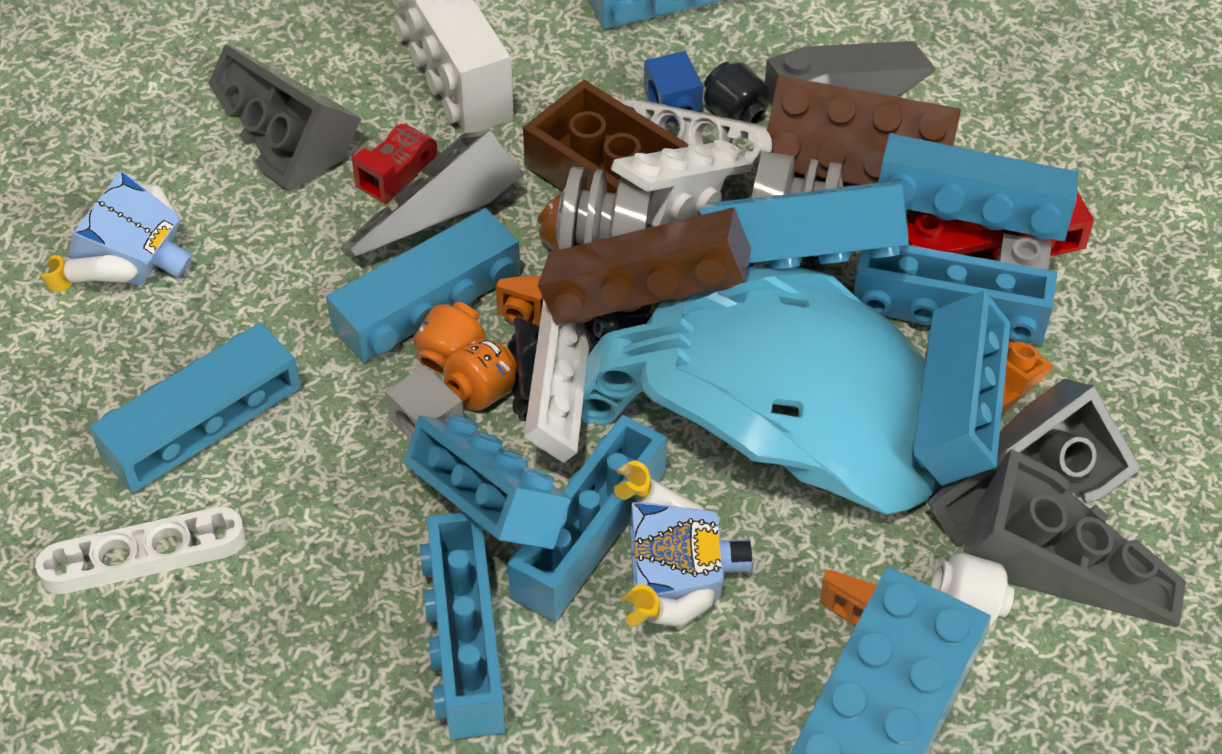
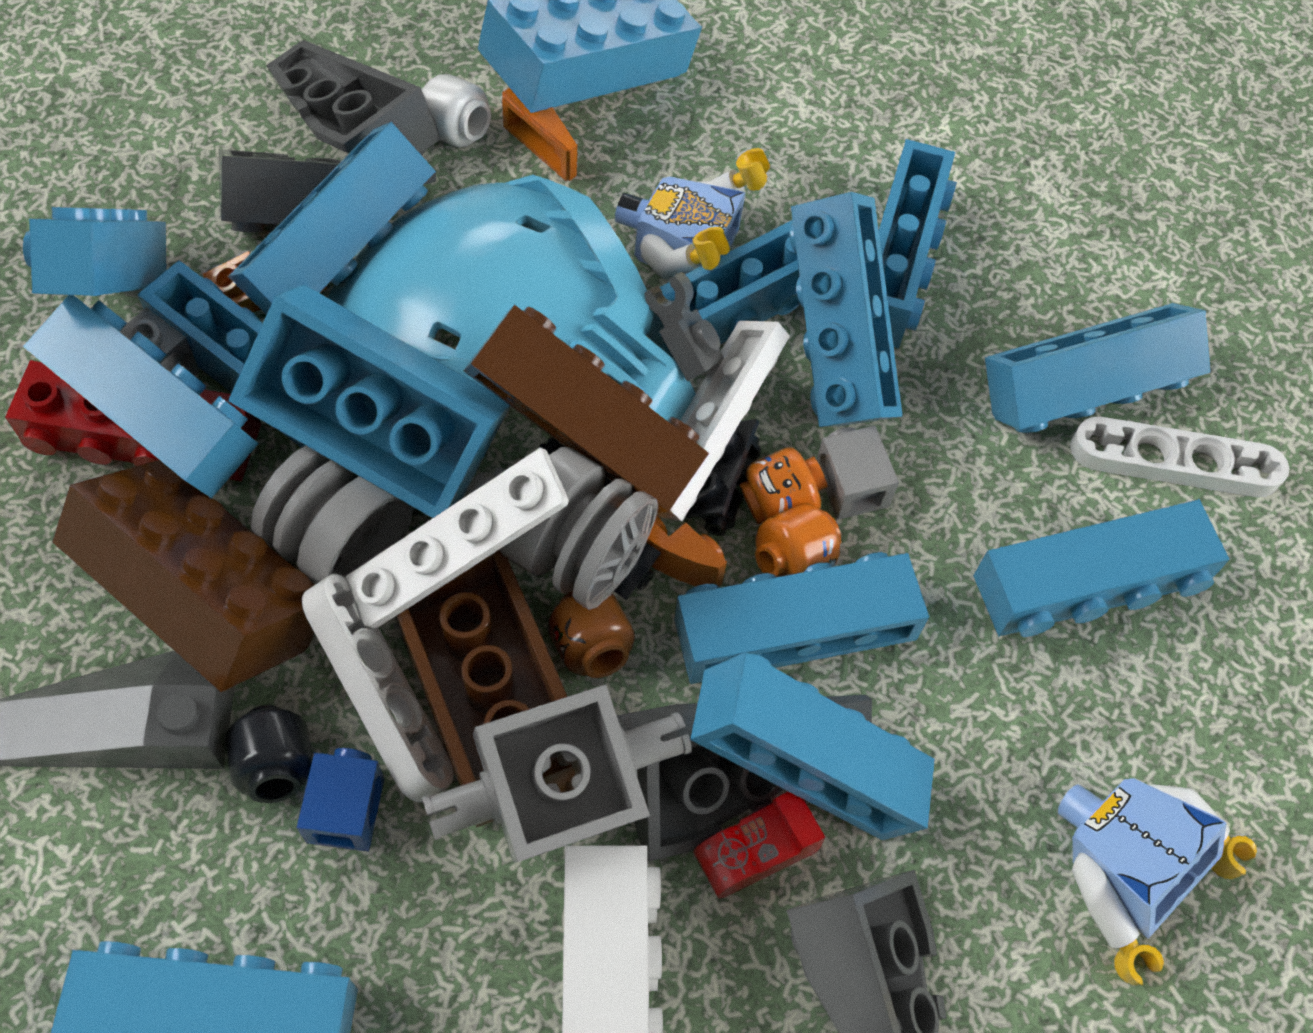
camera: 160 degrees left, 10 degrees up
(236, 579) = (1098, 366): none -> dark azure brick
(376, 172) = (813, 747): none -> dark azure brick
(533, 81) = (578, 733): none -> light grey brick
(607, 392) = (686, 334): none -> dark grey plate
(1097, 261) = (94, 251): none -> dark azure brick

